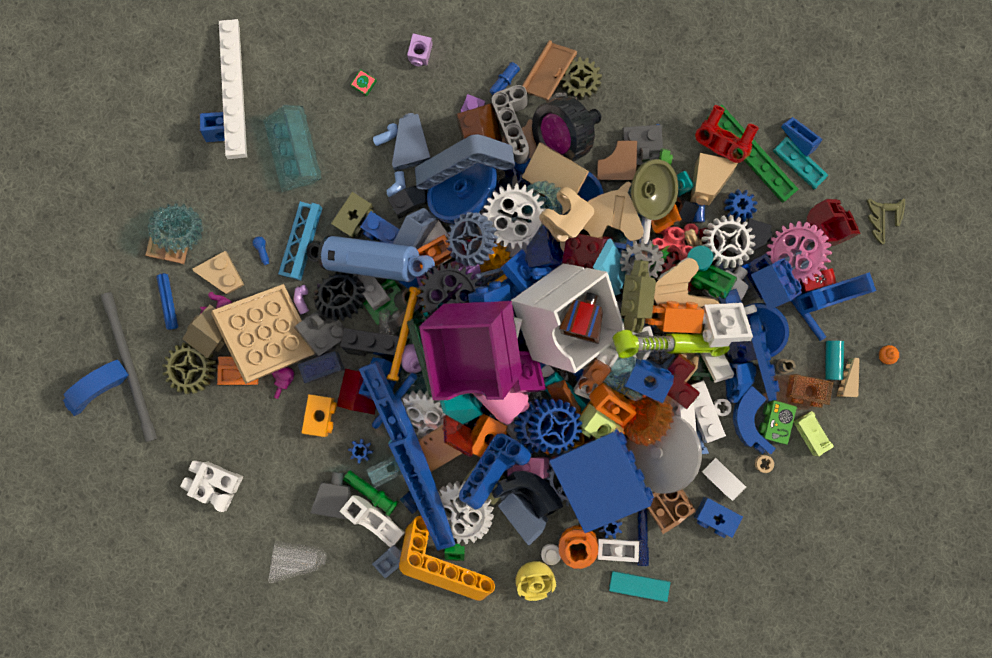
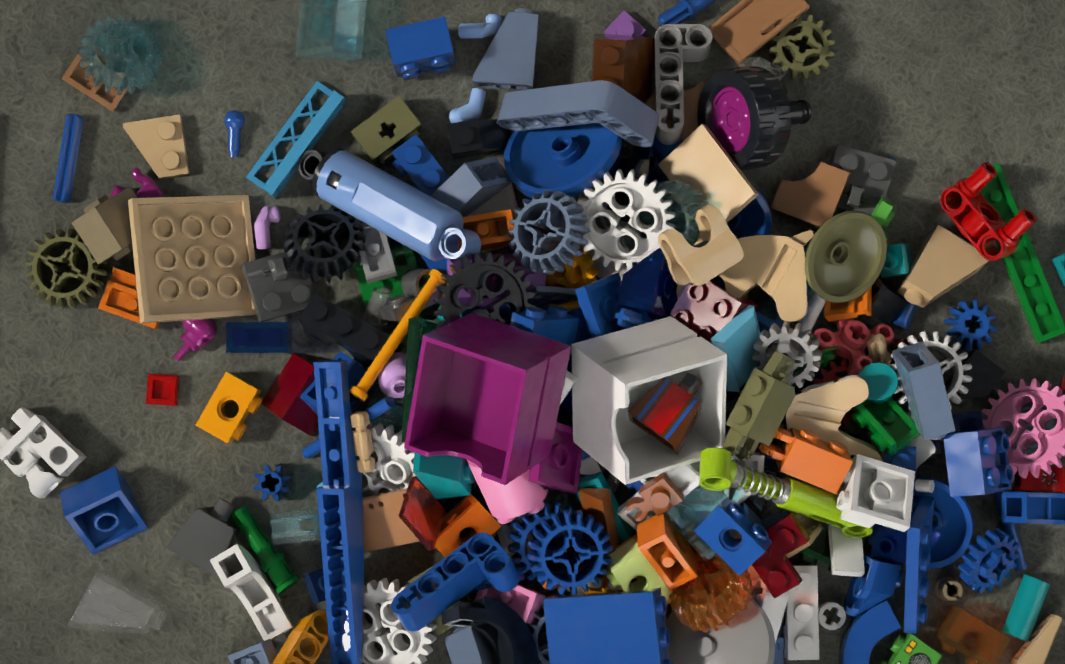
camera: 25 degrees right, 0 degrees up
(264, 505) = (102, 510): none -> blue slope
(274, 419) = (162, 389): none -> red tile
(355, 158) = (421, 48): none -> blue brick
(406, 406) = (362, 441): none -> tan axle
(731, 252) = (924, 390): none -> sand blue slope
(803, 340) = (989, 560): none -> blue gear

